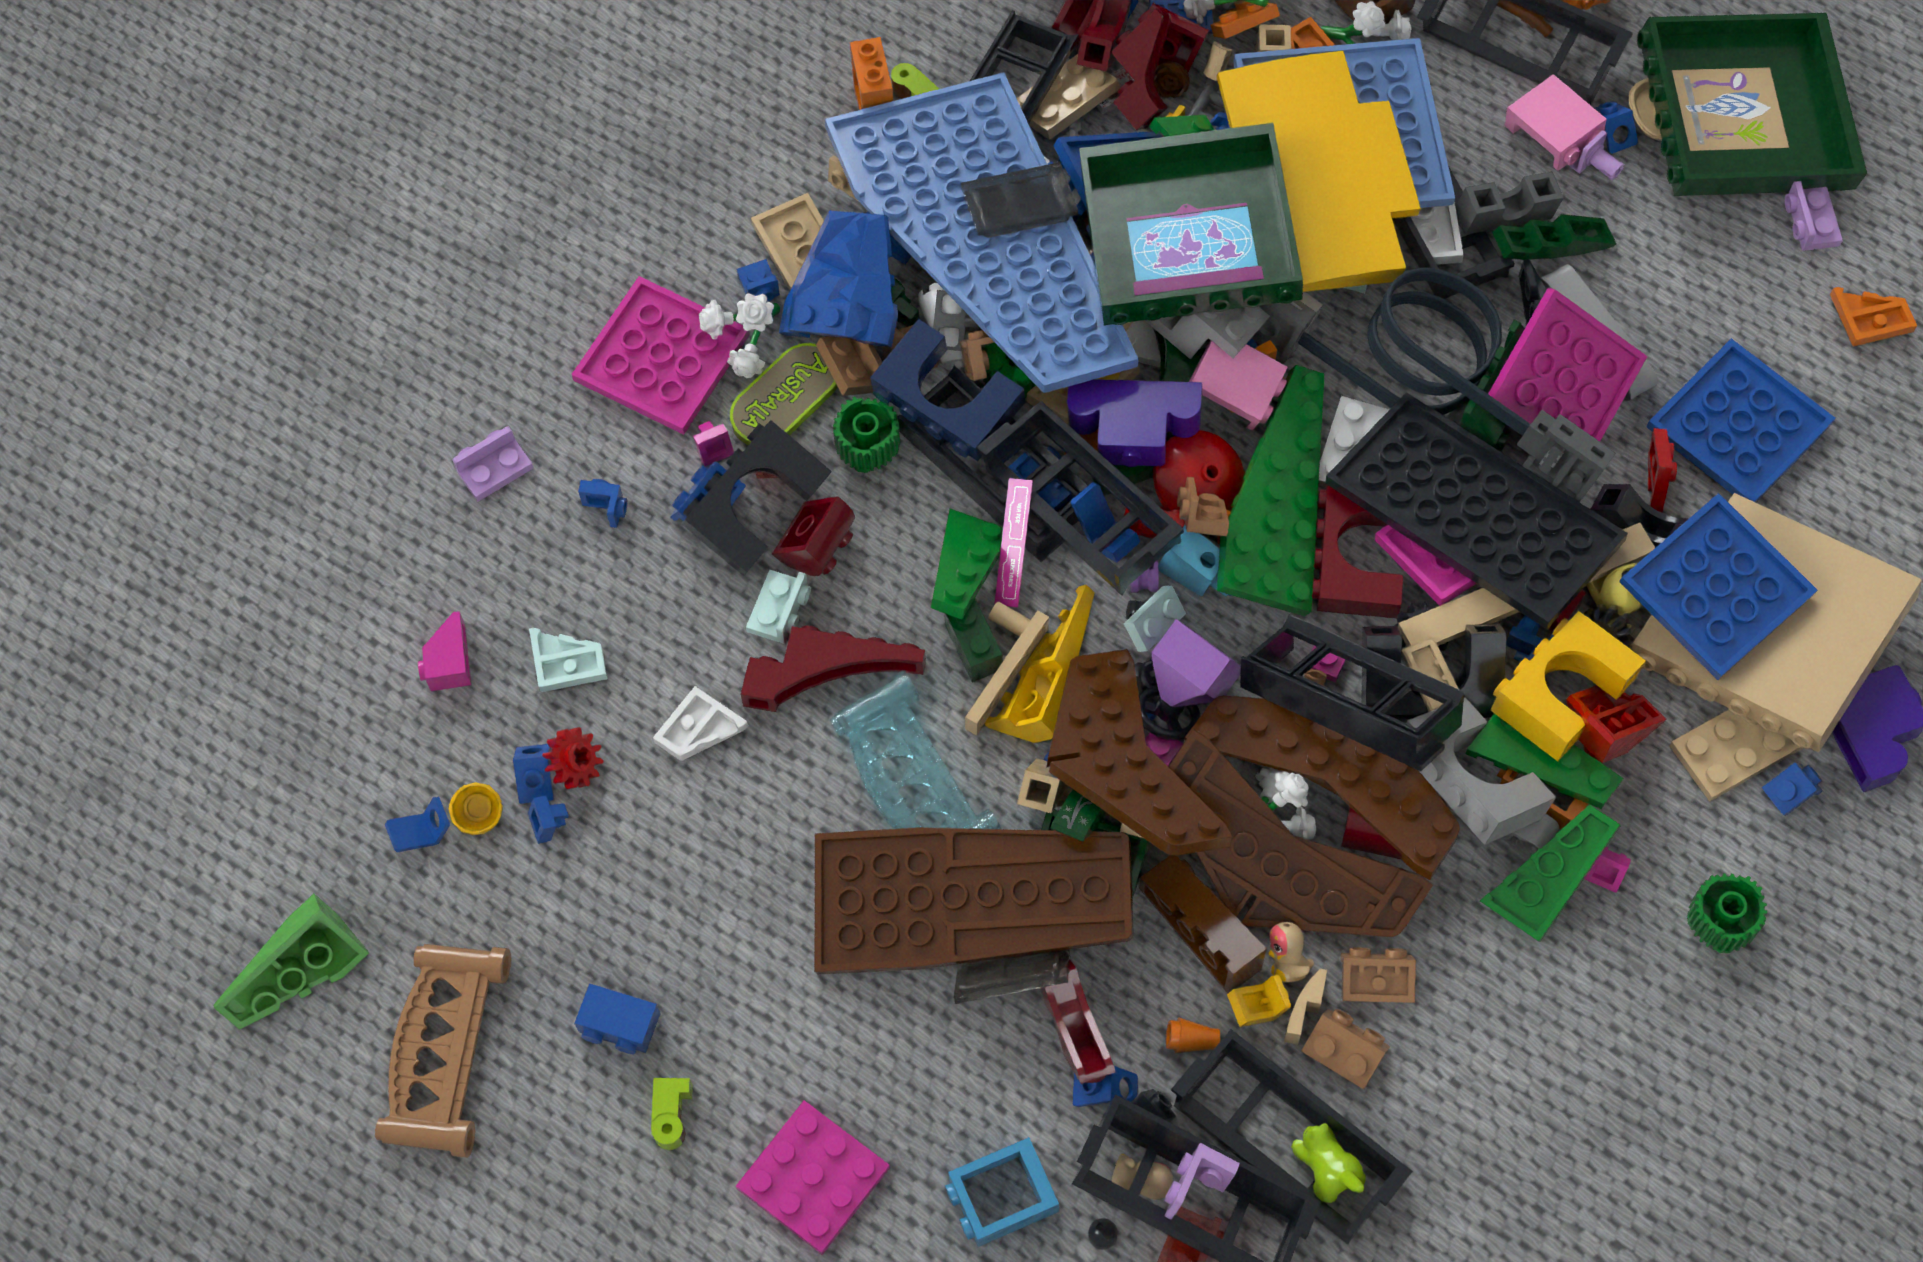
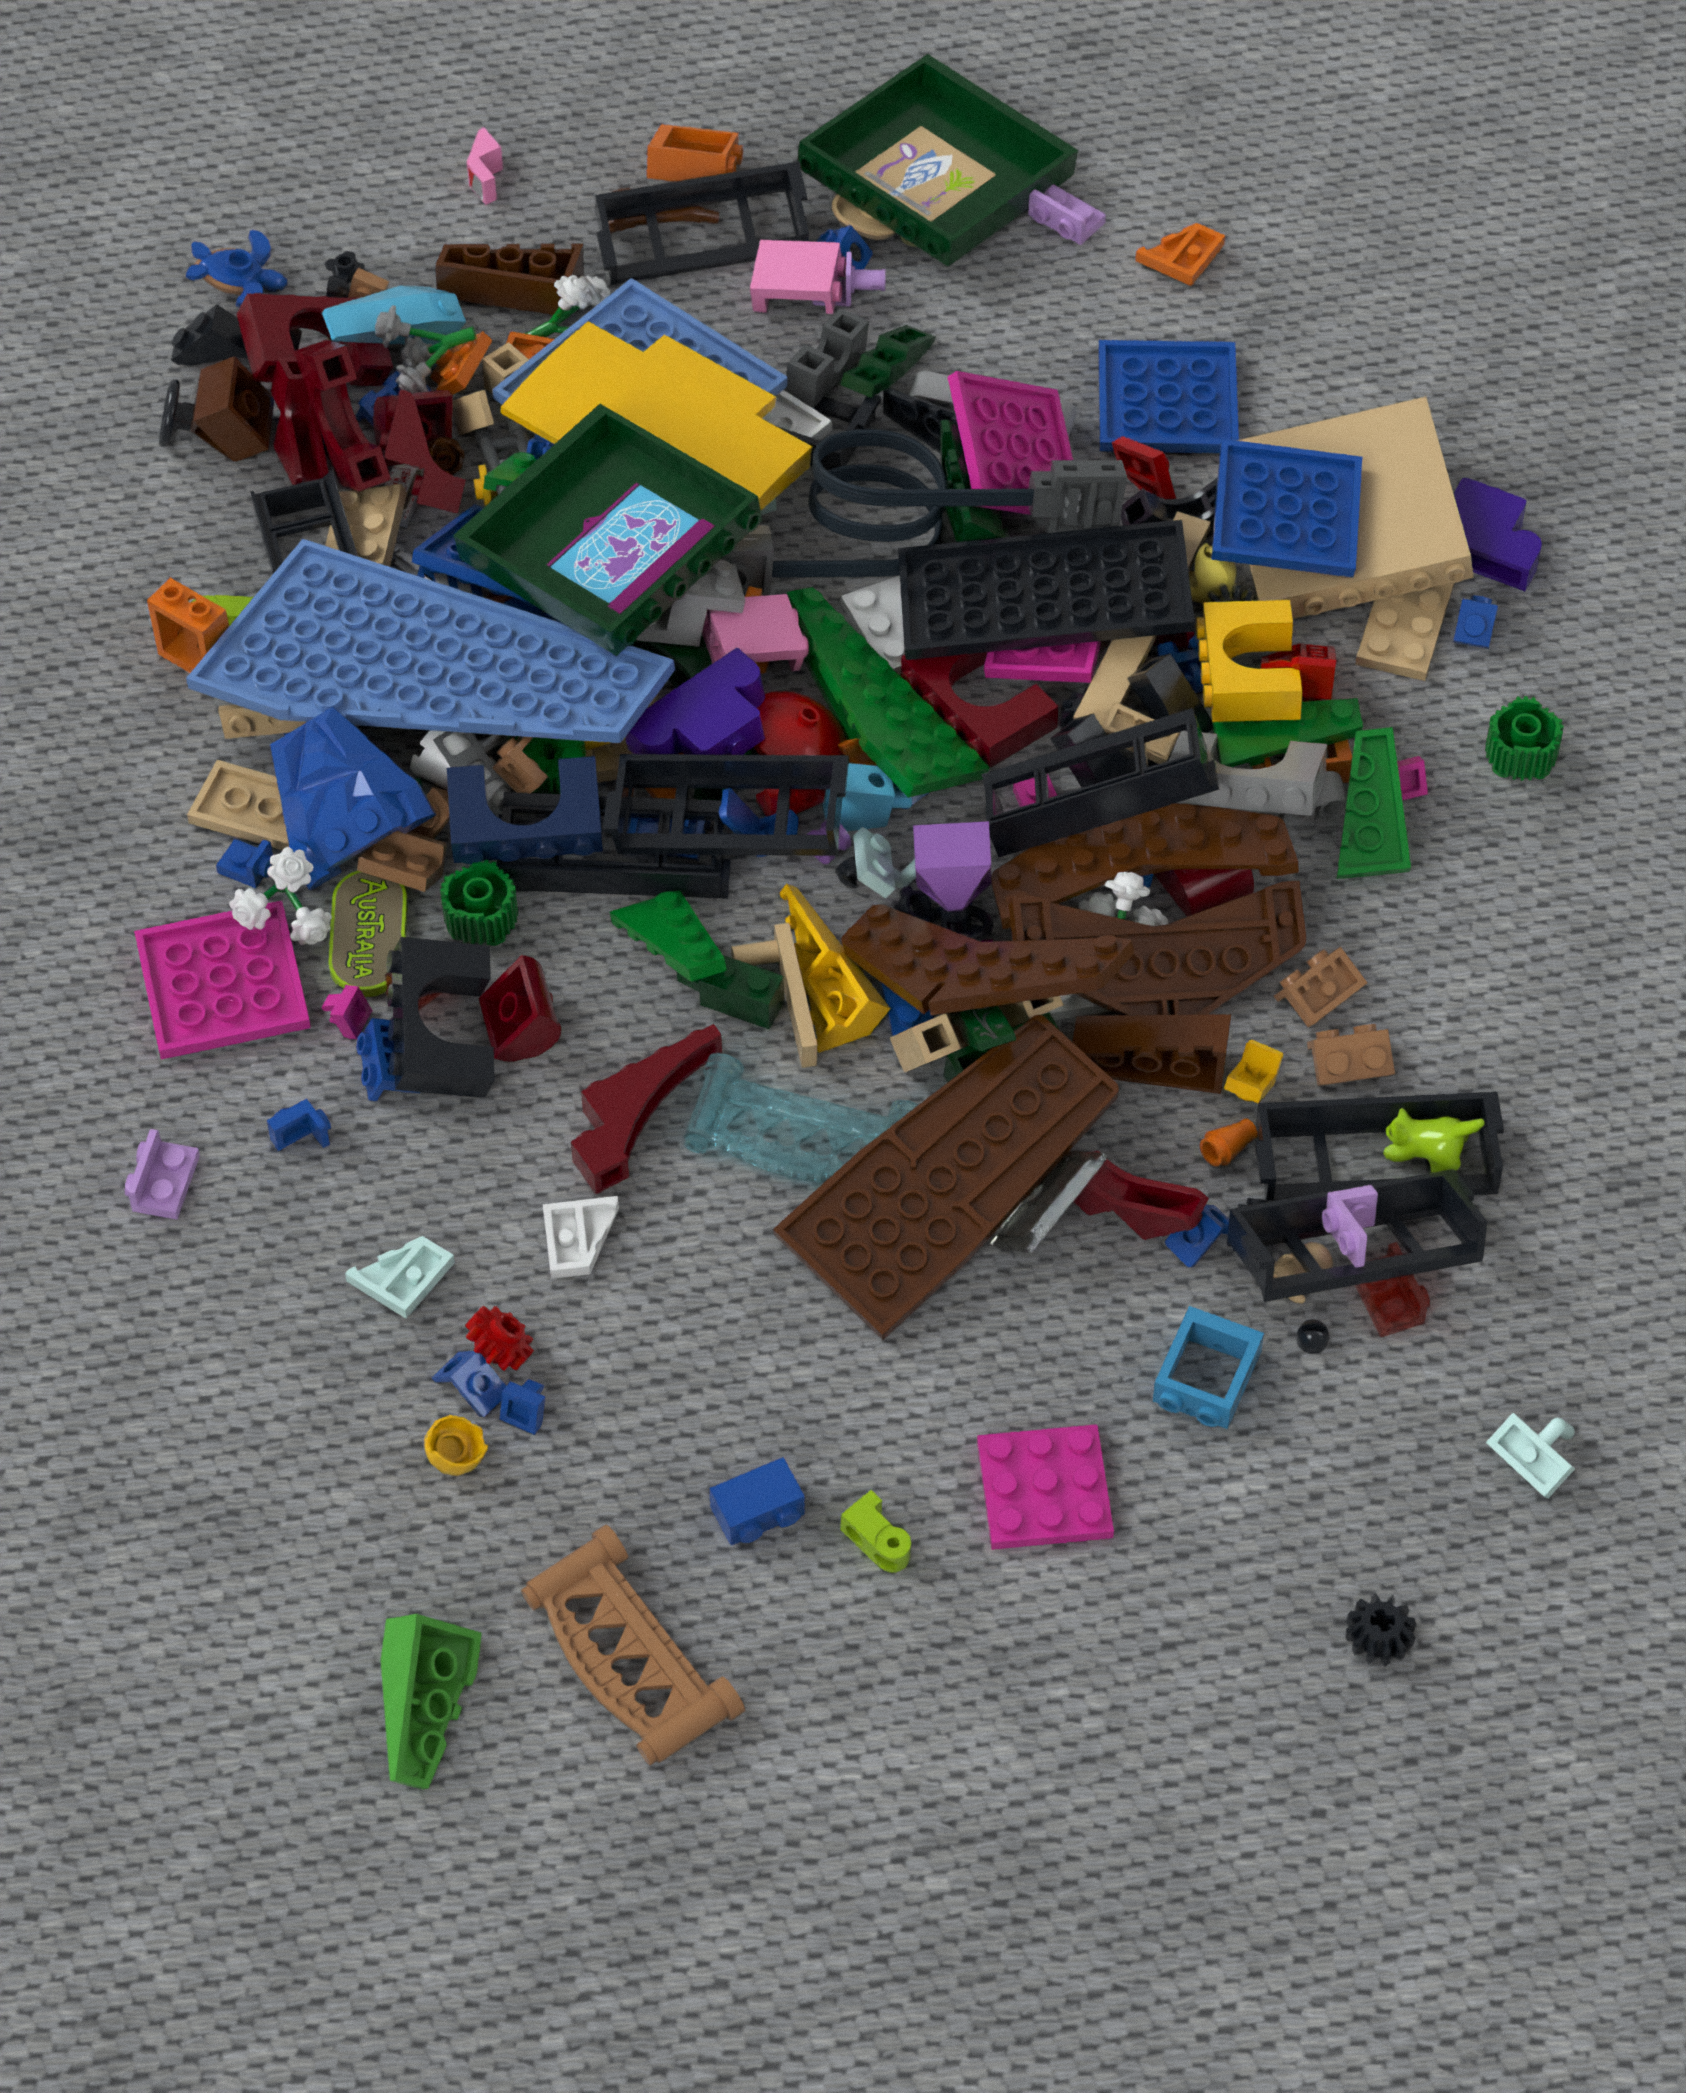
camera: 45 degrees left, 10 degrees down
(418, 830) = (418, 1504): blue bracket -> none
(446, 656) = (295, 1352): dark pink slope -> none
(778, 606) = (545, 1093): light aqua bracket -> none
(1013, 542) = (698, 889): sticker -> none
(1019, 200) = (436, 616): clear smoke piece -> none
(1202, 513) = (834, 741): medium nougat bracket -> none
(1286, 950) = (1243, 1023): tan animal -> none
(1309, 1001) = (1289, 1041): tan slope -> none

